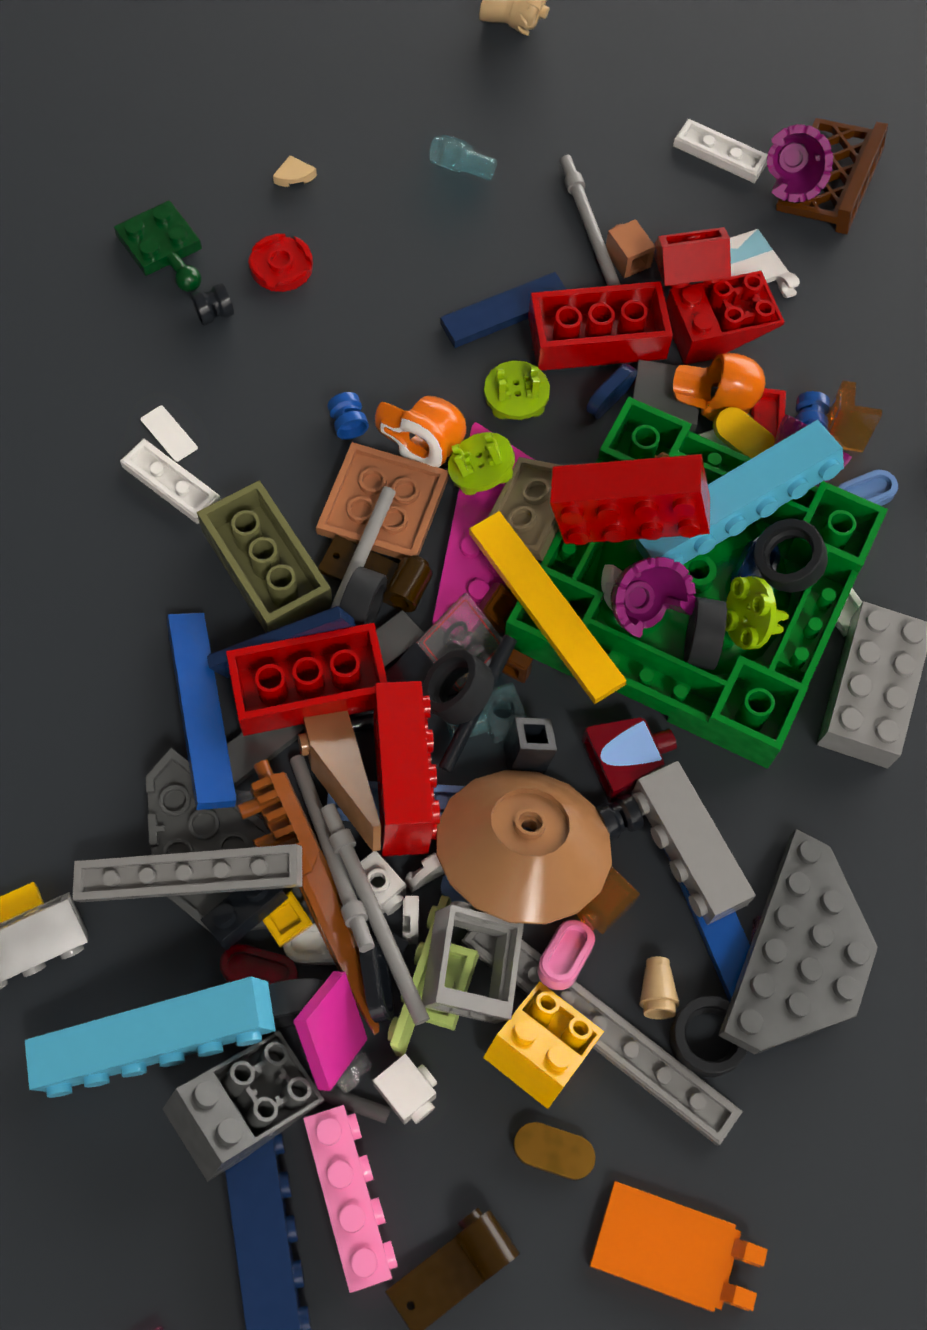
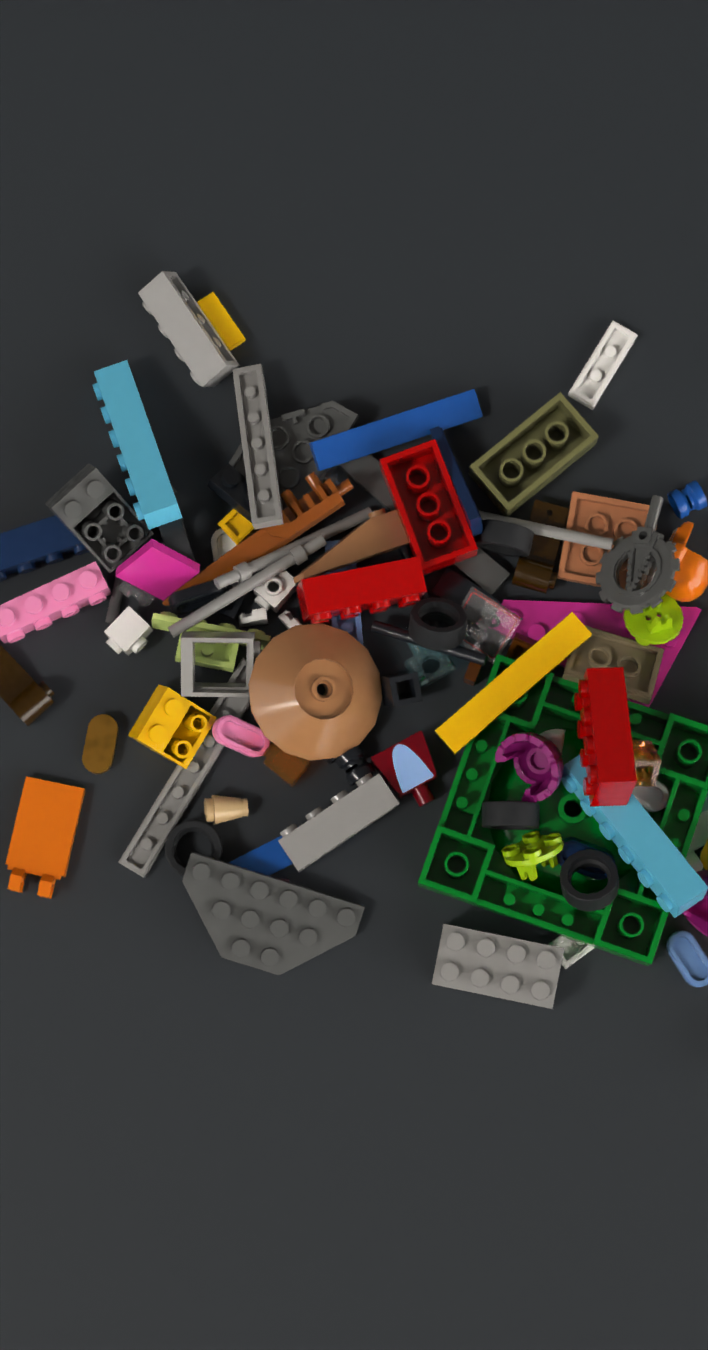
camera: 90 degrees right, 15 degrees up
(169, 433) = (650, 354): white sticker -> none
(247, 961) = (202, 514): dark red tile -> none
(402, 454) = (642, 550): none -> dark grey bar

